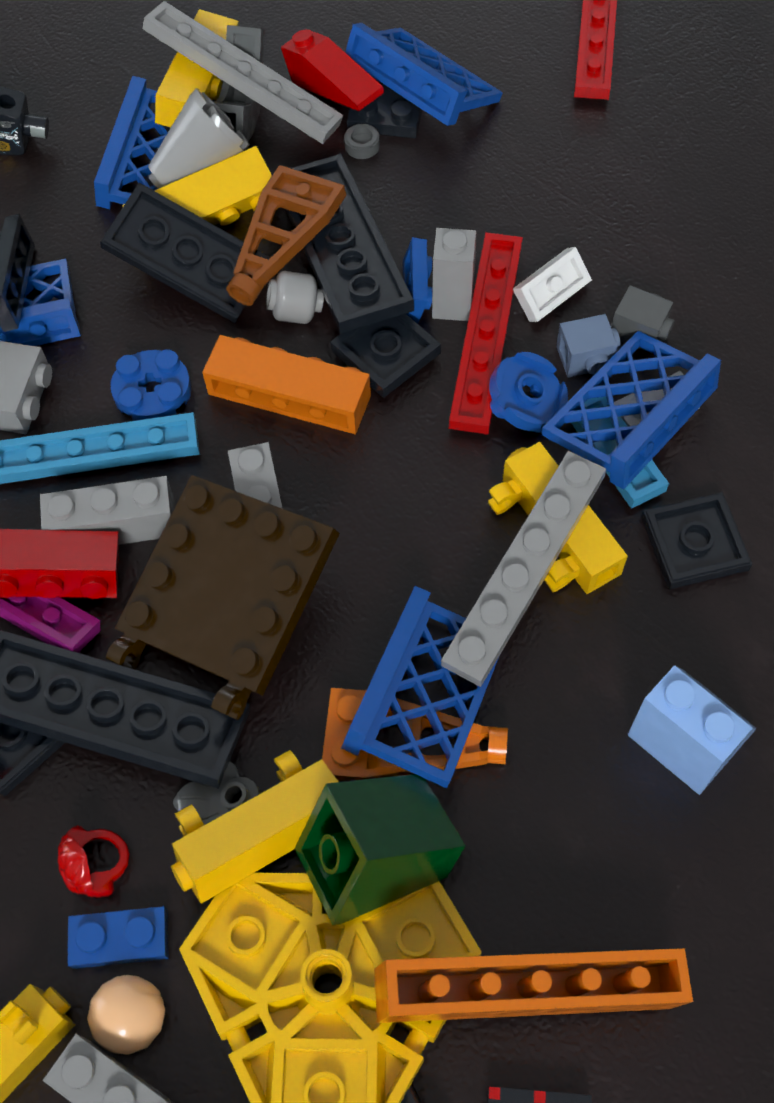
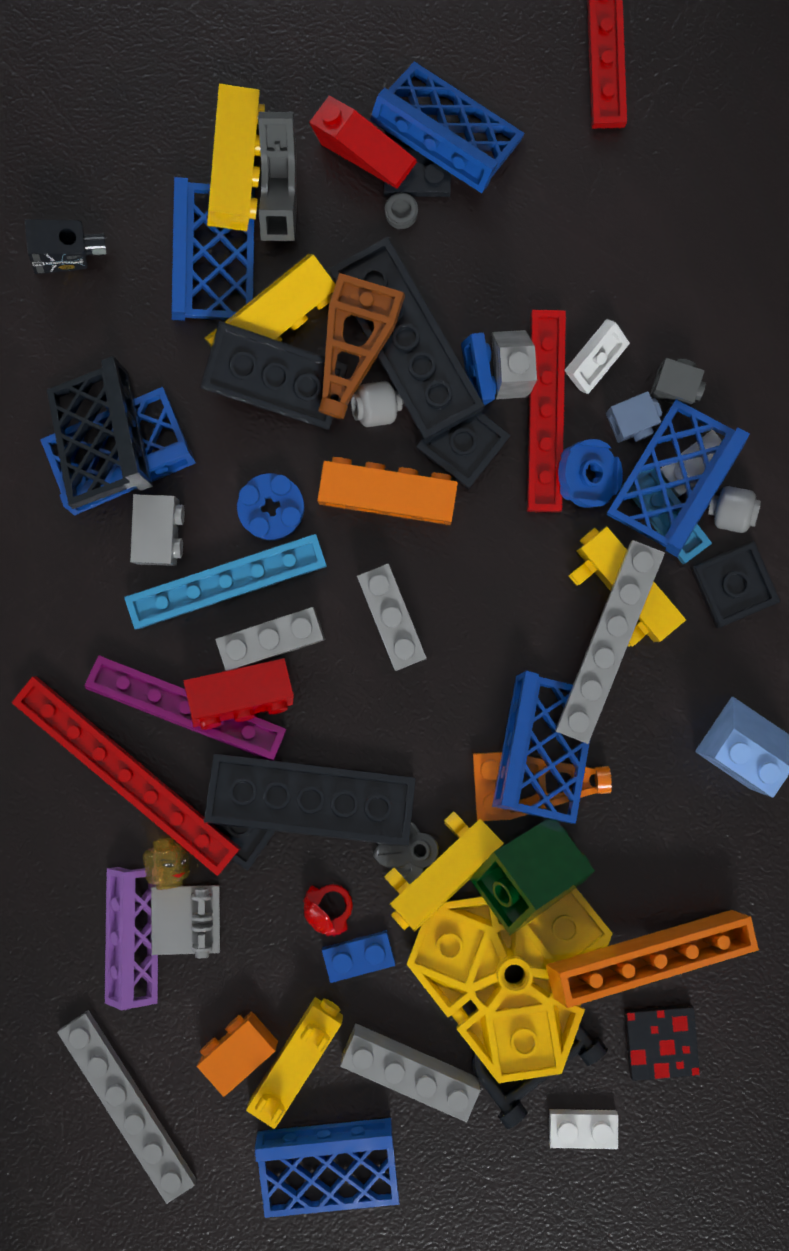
camera: 10 degrees left, 25 degrees up
(126, 1014) = (377, 1005): light nougat hair -> none
(195, 141) = (259, 260): light grey cone -> none
(225, 588) = (381, 695): dark brown plate -> none
(242, 72) = (280, 165): light grey plate -> none
(700, 452) = (735, 509): none -> light grey head

